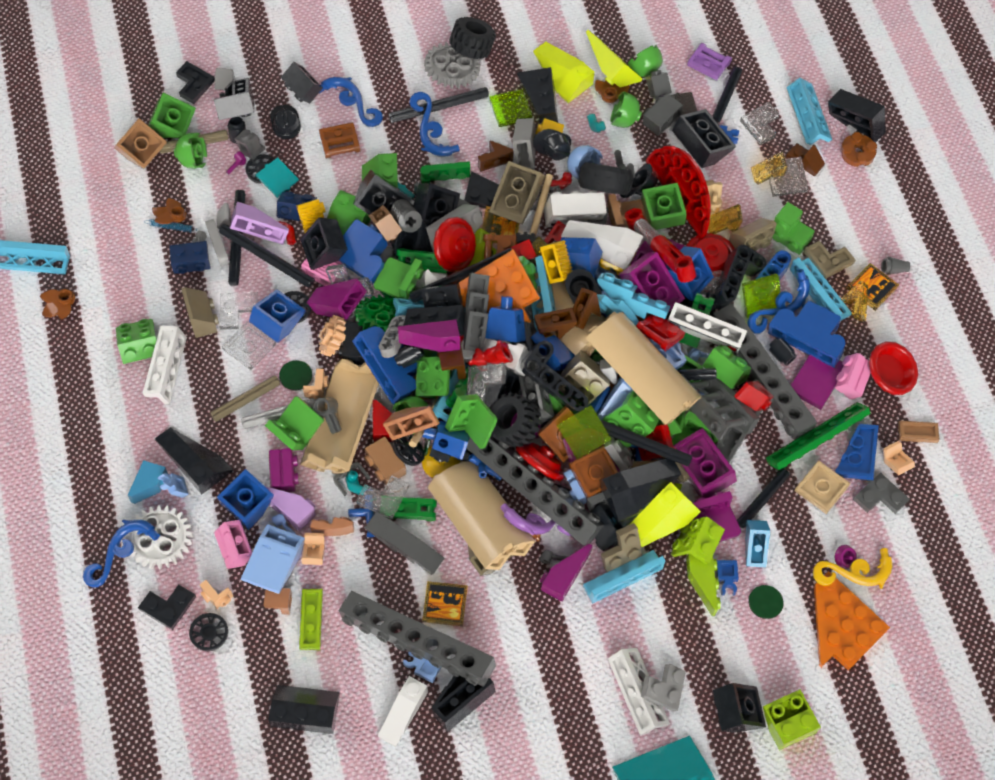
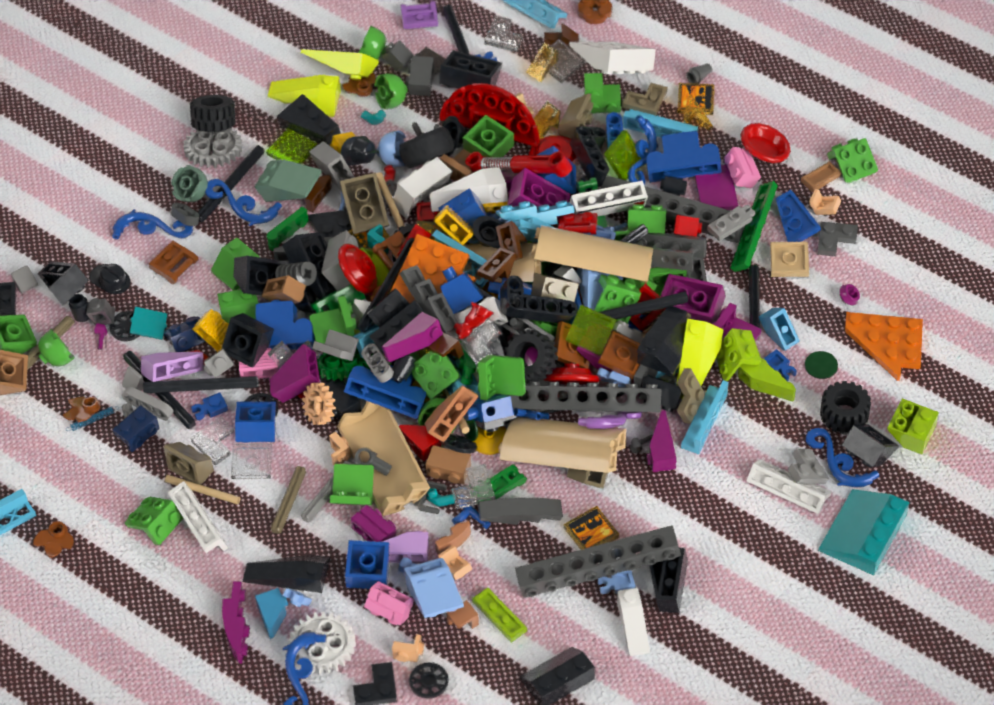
camera: 35 degrees left, 10 degrees down
(109, 474) = (235, 622): none -> magenta slope
(194, 343) = (204, 490): none -> tan bar
(262, 279) = (211, 405): none -> blue plate
(290, 247) = (218, 363): none -> light grey bracket
(295, 375) = (311, 456): dark green piece -> none
(301, 82) = (99, 238): black brick -> none
(381, 107) = (184, 214): none -> dark grey beam
(381, 300) = (338, 345): none -> light grey panel
(404, 85) = (189, 184): none -> sand green cylinder
(476, 131) = (286, 181): none -> sand green slope
(501, 225) = (375, 236): none -> teal bracket
(696, 697) = (842, 458): none -> blue plant
(753, 643) = (849, 395): none -> black tyre
(797, 419) = (731, 222): none -> light grey hinge
(830, 203) = (616, 56): none -> white slope
(854, 573) = (866, 295): yellow plant -> none
(960, 437) = (854, 159): none -> bright green bracket

